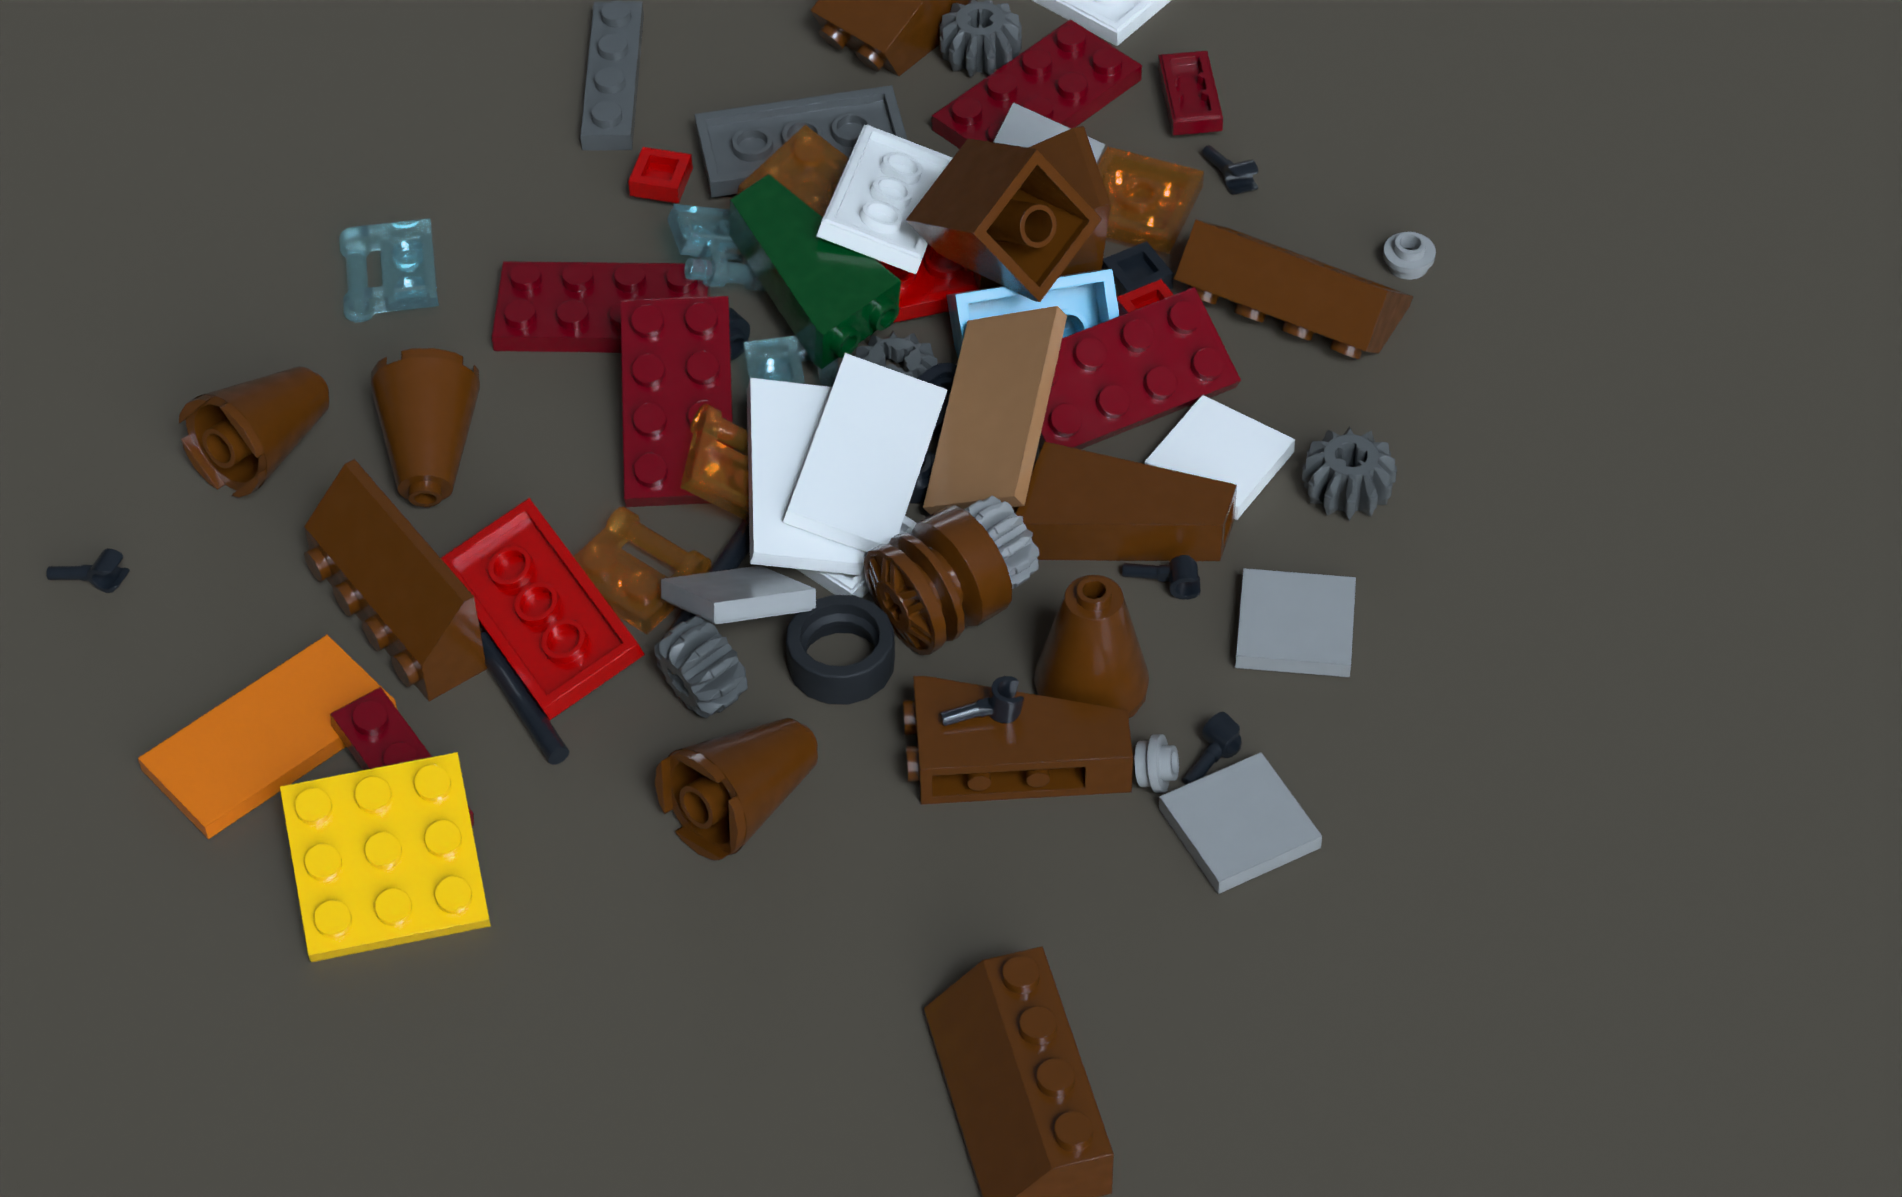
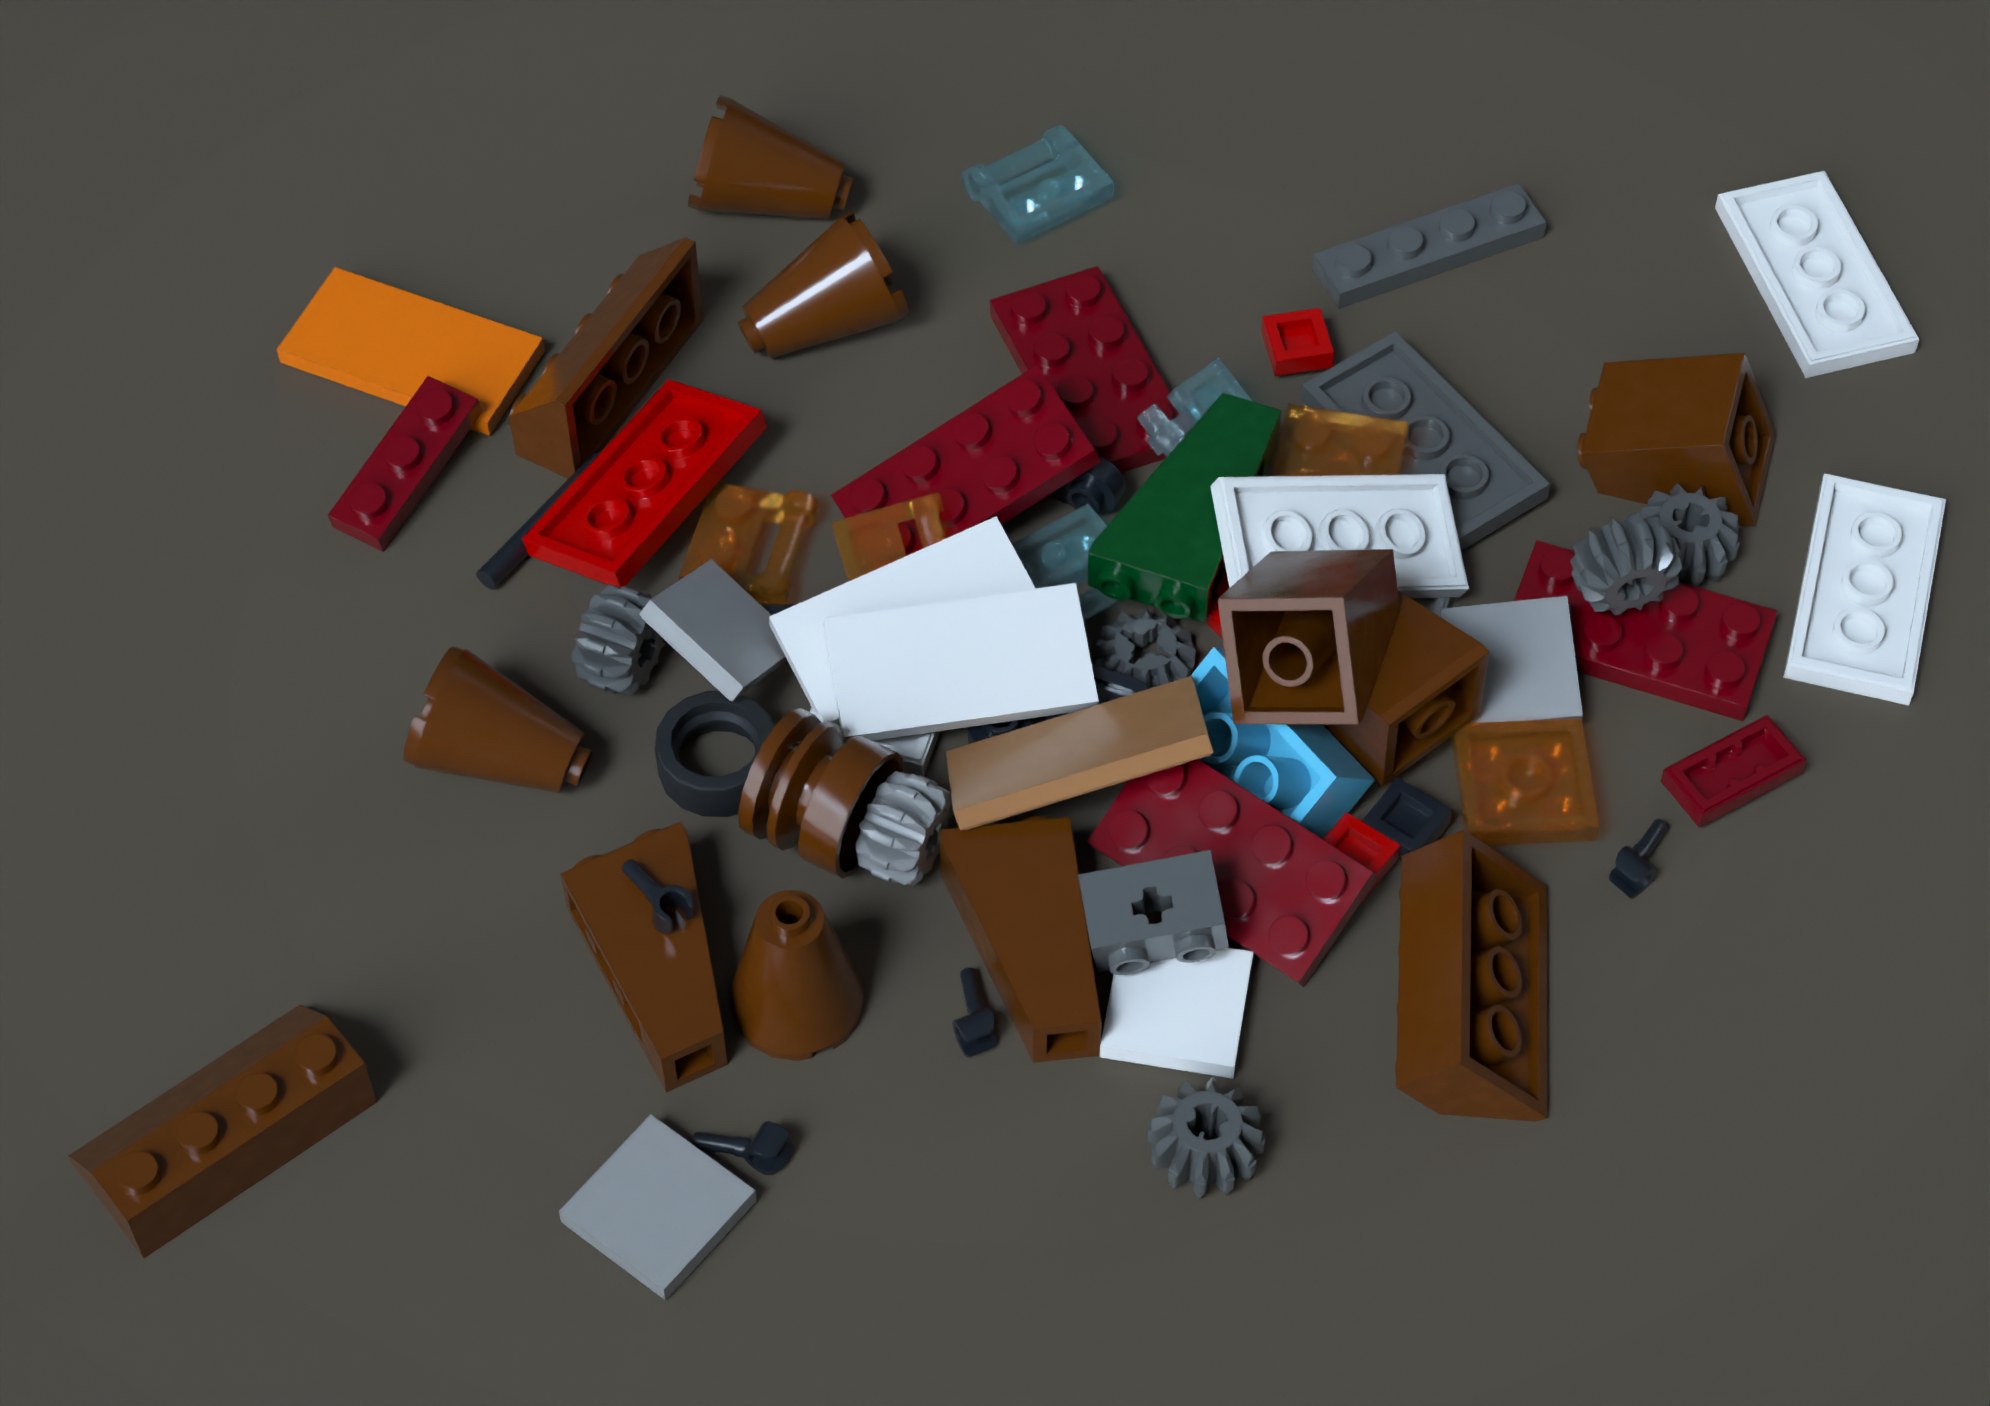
camera: 65 degrees right, 5 degrees up
(103, 574) = (547, 147): black hand -> none
(384, 857) = (287, 492): yellow plate -> none
(1013, 56) = (1626, 564): none -> dark grey gear
(1156, 763) = (691, 1093): light grey plate -> none
(1161, 414) = (1119, 905): none -> dark grey brick
(1296, 622) = (968, 1165): light grey tile -> none
(1409, 255) = (1602, 1102): light grey plate -> none

